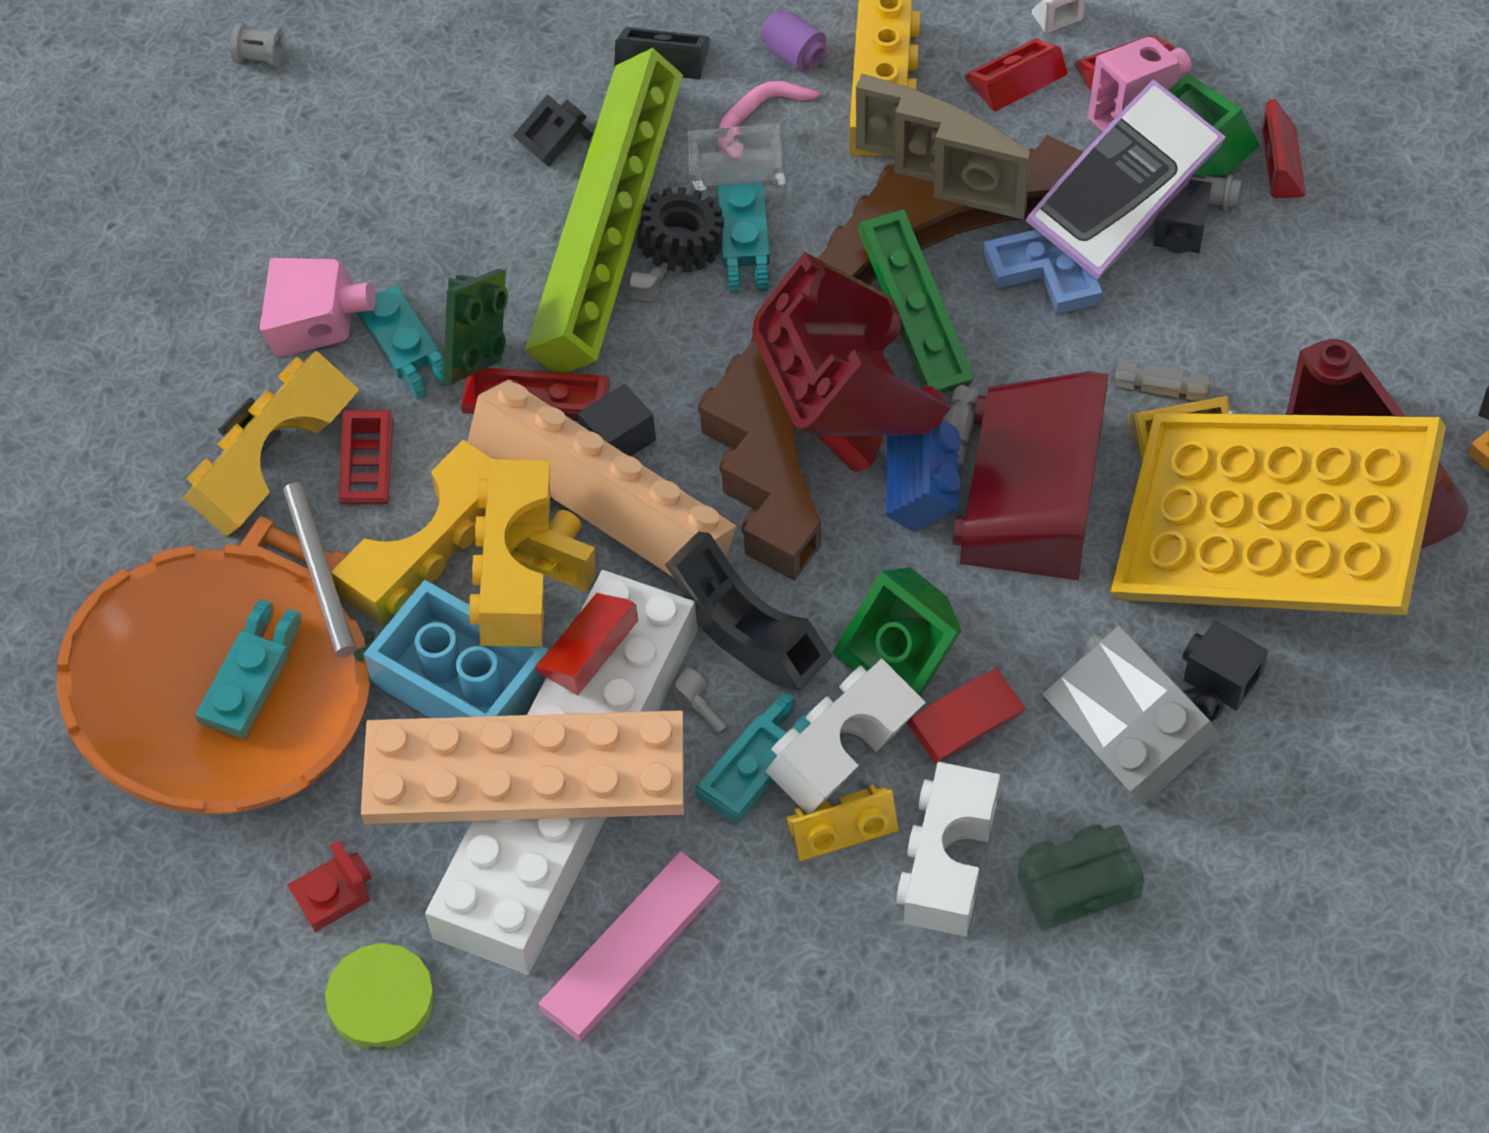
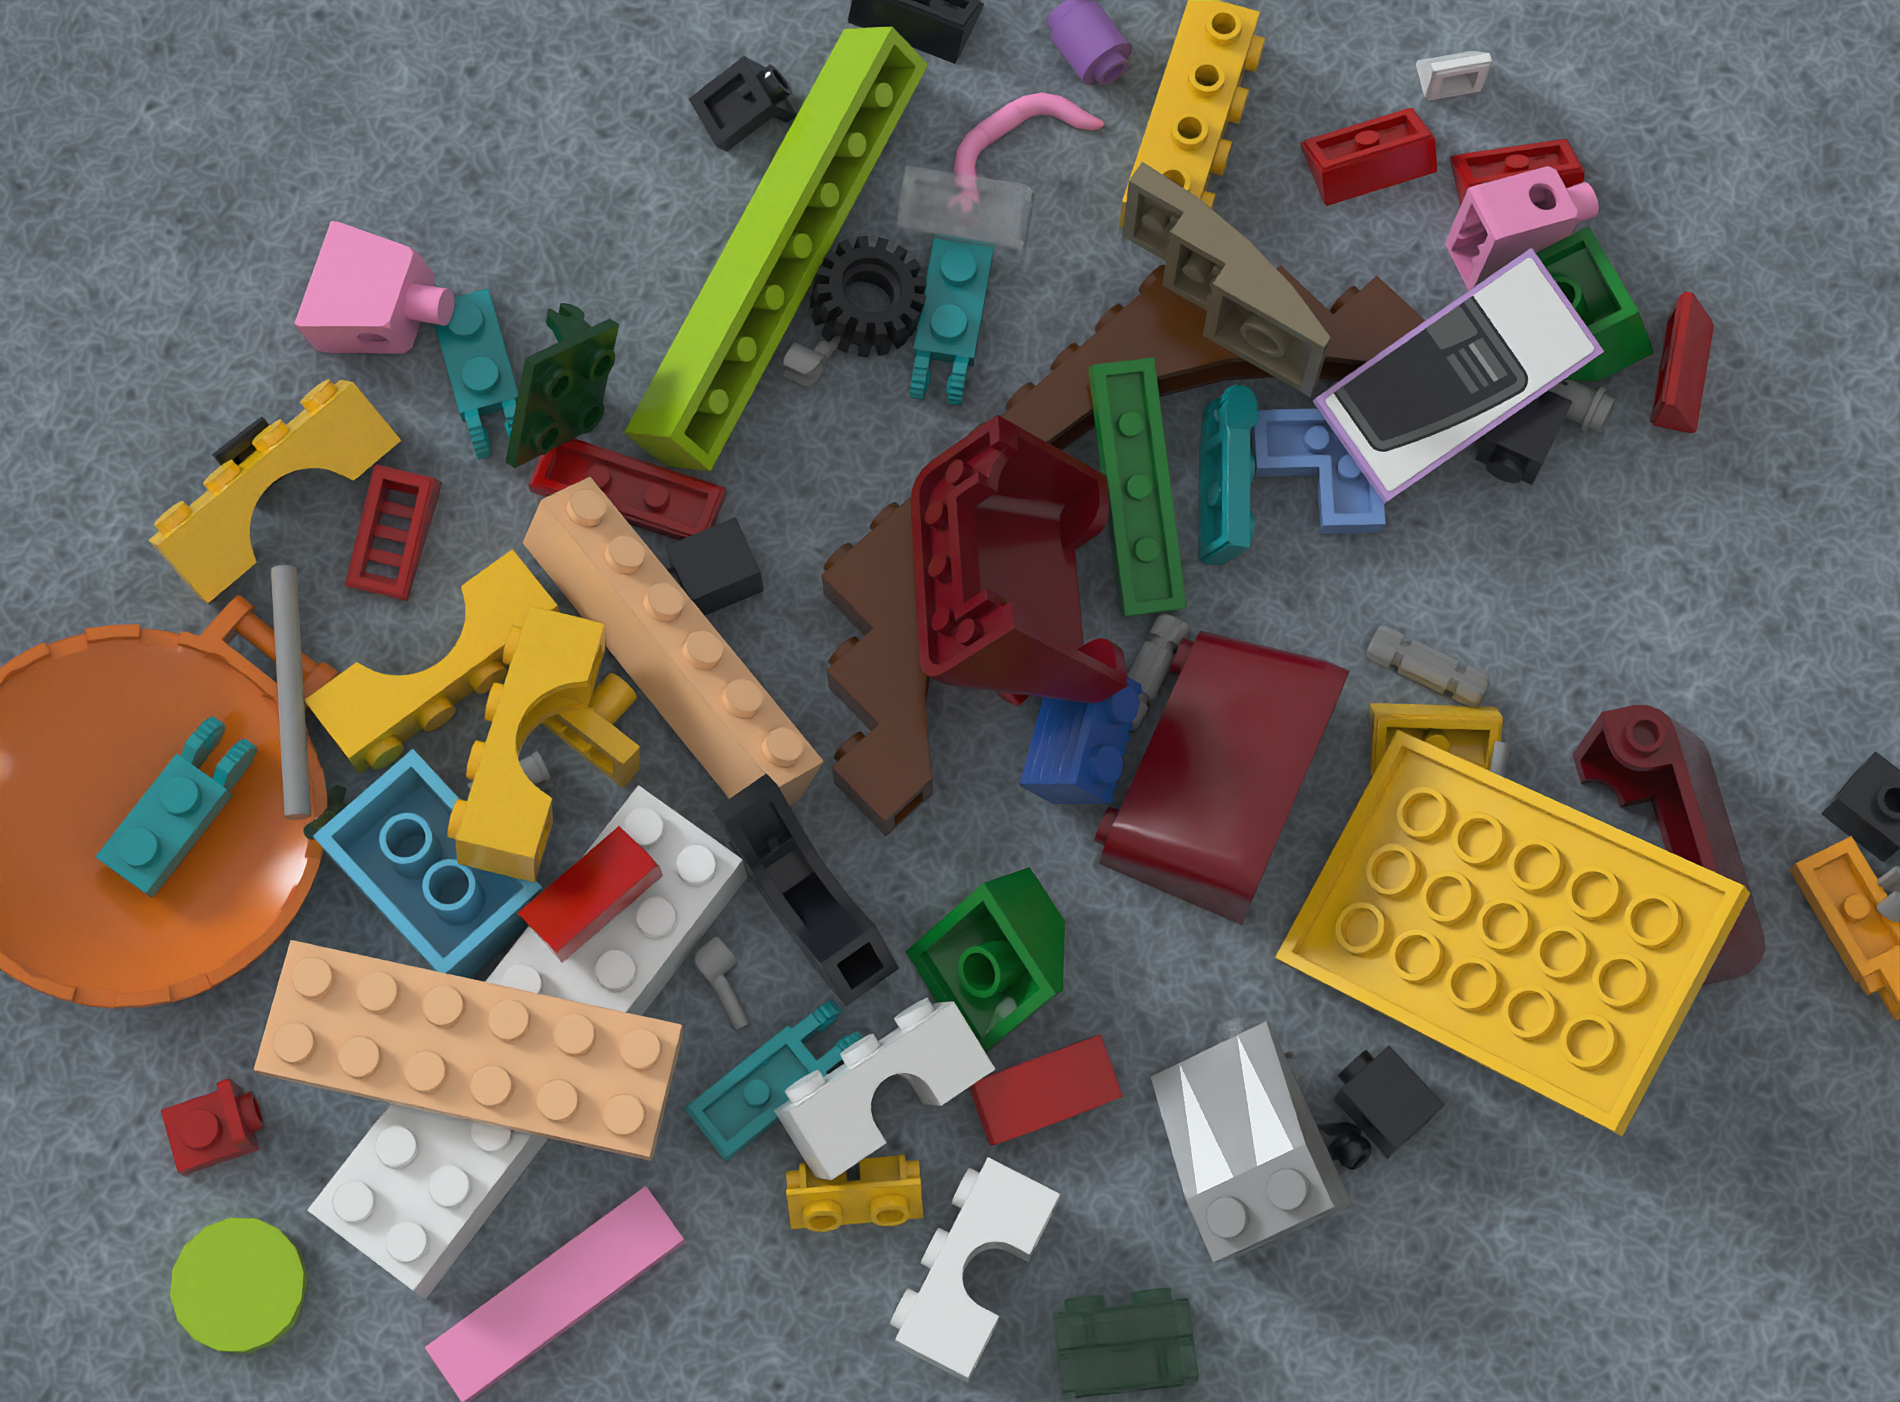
camera: 10 degrees right, 15 degrees up
(977, 289) = (1226, 476): none -> teal hinge

